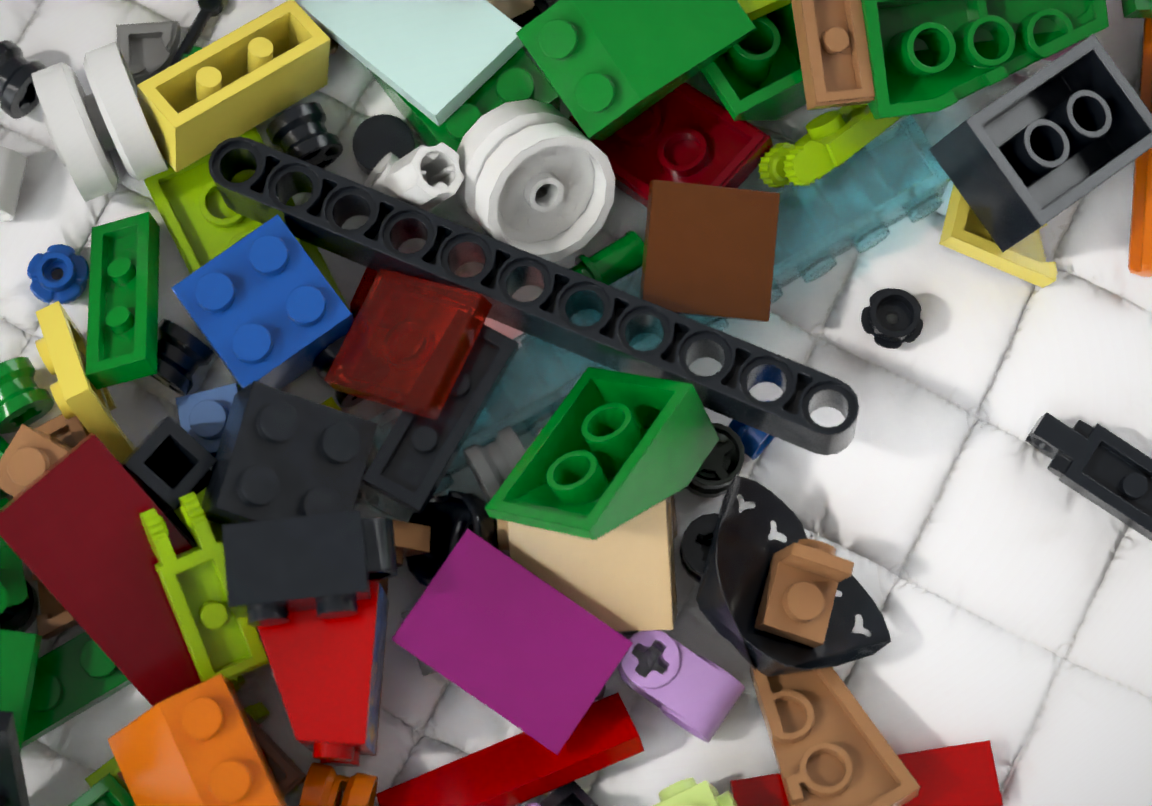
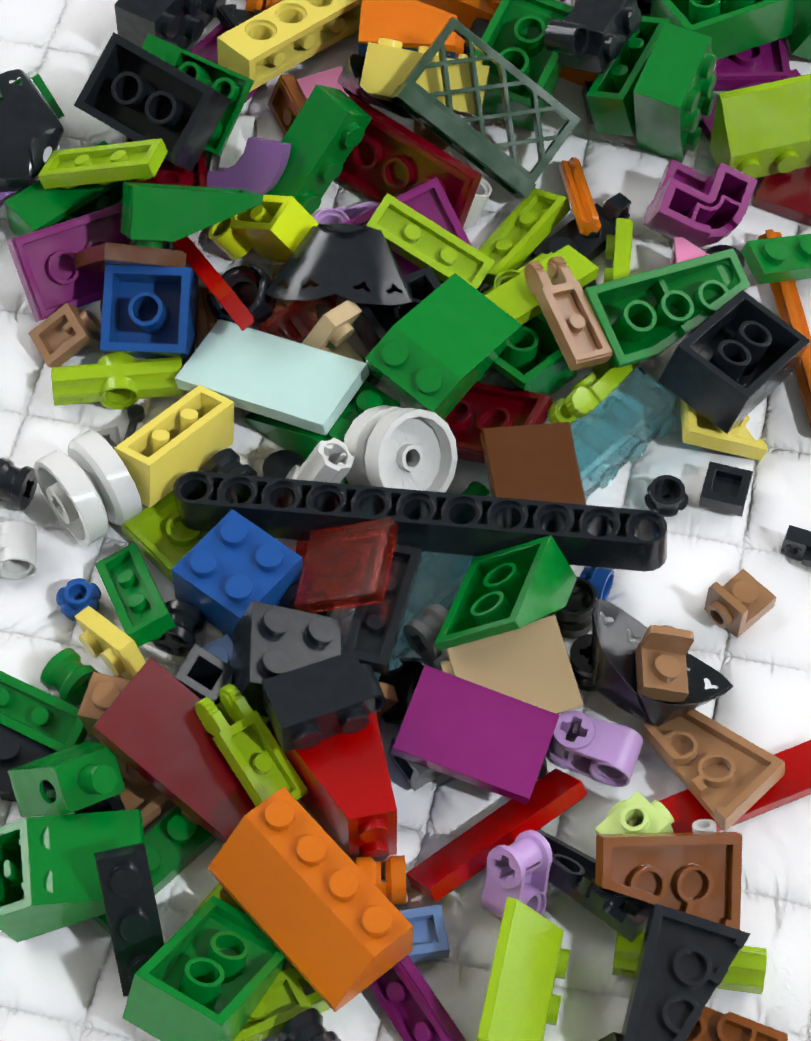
camera: 15 degrees left, 20 degrees down
(941, 506) = (738, 603): none -> medium nougat bracket
(978, 327) = (725, 488): none -> black plate

